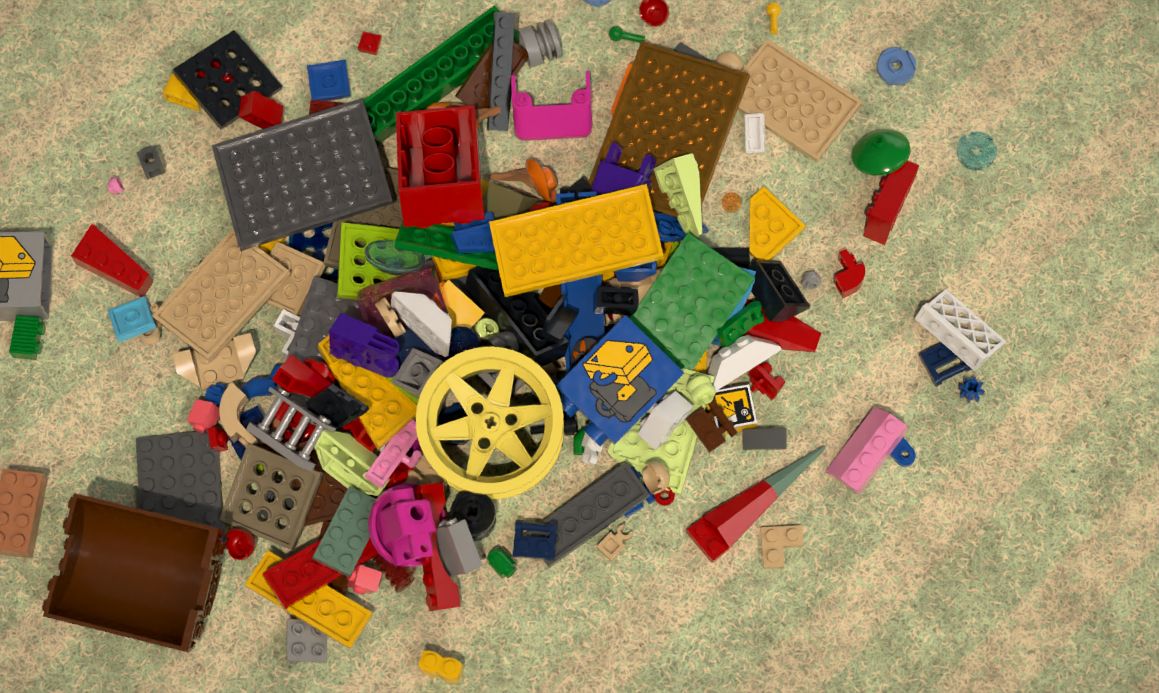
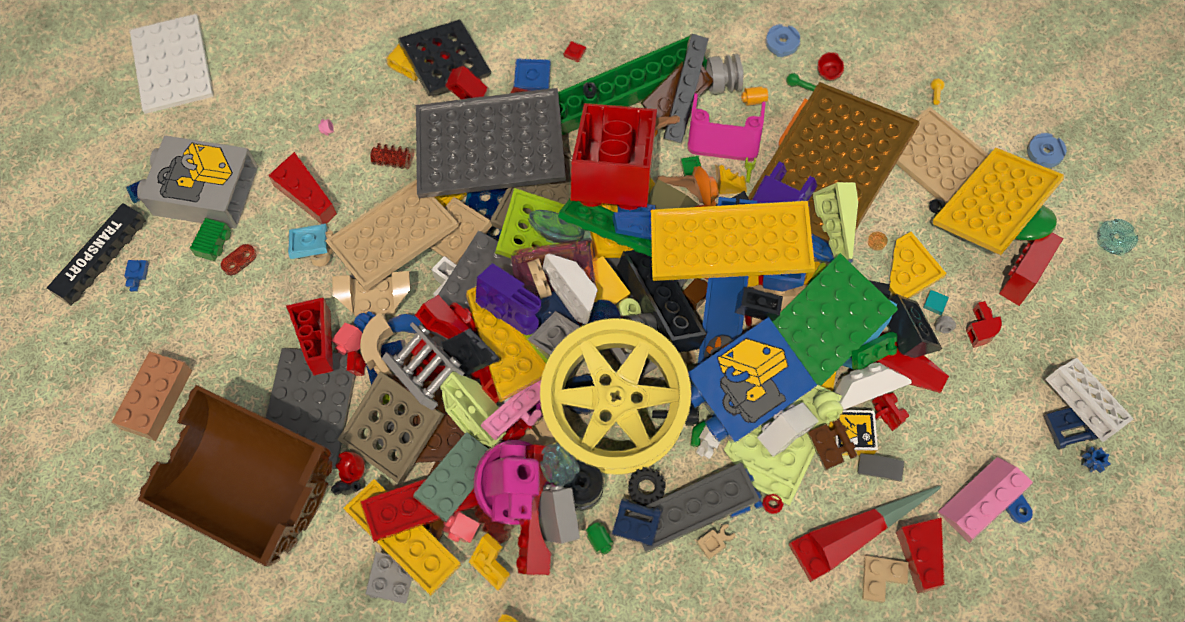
camera: 10 degrees right, 5 degrees down
(61, 353) = (238, 259): none -> clear red plate
(150, 169) = (361, 113): dark grey brick -> none
(166, 414) = (314, 332): none -> red wedge
(196, 207) = (390, 157): none -> clear red piece
(239, 565) = (345, 488): none -> black arm
(393, 94) = (589, 94): none -> black hinge
(395, 608) = (485, 562): none -> yellow plate
(458, 499) = (568, 467): none -> clear light blue plate
(520, 155) = (688, 164): none -> green plate
(535, 492) = (646, 474): none -> black tyre
(558, 321) = (699, 313): black panel -> none
(567, 165) = (728, 182): none -> yellow slope
(577, 61) = (754, 95): none -> light orange brick
(585, 144) = (749, 166): none -> lime hand
(656, 477) = (768, 483): tan hair -> none
(755, 133) = (908, 183): white plate -> none
(786, 151) = (934, 205): none -> black hinge
(799, 258) = (936, 302): none -> teal tile
(814, 513) = (924, 553): none -> red wedge
(846, 137) = (998, 200): none -> yellow plate

